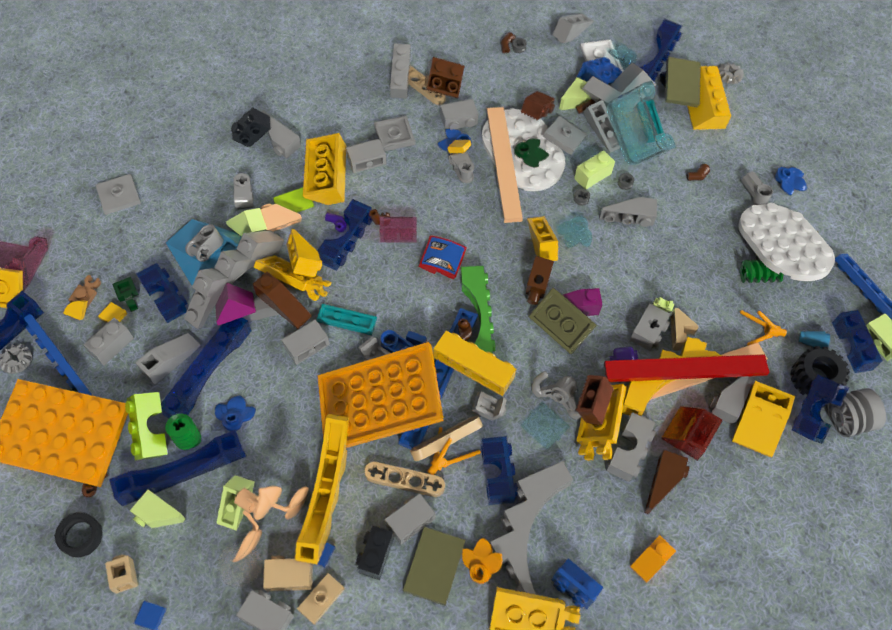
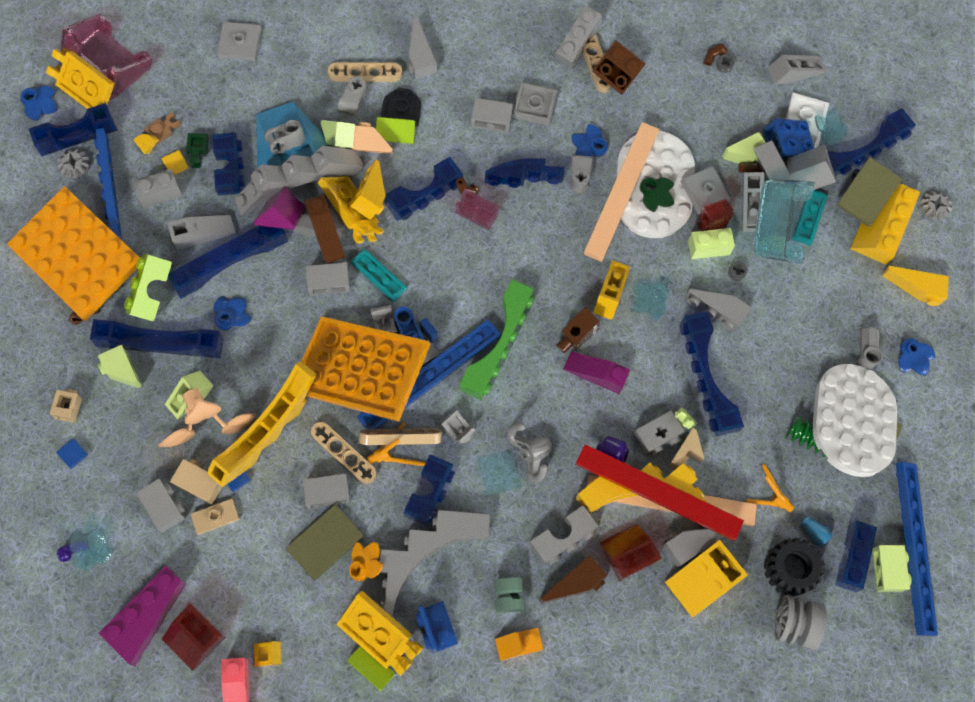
camera: 25 degrees right, 10 degrees up
(66, 524) = (41, 340): black tyre -> none
(183, 431) = (176, 308): green piece -> none
(240, 168) = (365, 69): none -> tan beam
(250, 127) = (395, 31): black brick -> none
(286, 180) = (402, 105): none -> black tile
(325, 169) = (442, 111): yellow slope -> none
(339, 221) = (427, 171): dark purple arm -> none
(376, 551) = (279, 503): black brick -> none
(412, 187) = (515, 171): none -> clear blue slope
(442, 256) = (503, 258): slope -> none
(459, 114) = (611, 114): light grey brick -> none
(459, 146) = (588, 151): yellow tile -> none
(464, 329) = (476, 346): reddish brown arm -> none
(474, 362) = (464, 381): yellow brick -> none
(538, 105) = (696, 144): copper brick -> none
(562, 321) = (577, 382): olive tile -> none
(579, 200) = (676, 268): dark grey bush -> none
(586, 147) = (715, 216): none -> clear red brick
(595, 399) = (551, 475): copper brick -> none
(606, 434) = (550, 496): yellow tile -> none
(620, 520) = (508, 595): none -> sand green wheel
(685, 286) = (723, 414): none -> clear blue arch
(700, 175) = (822, 302): reddish brown arm -> none
(760, 129) = (921, 285): none -> yellow slope
(809, 420) = (748, 606): clear blue arch -> none

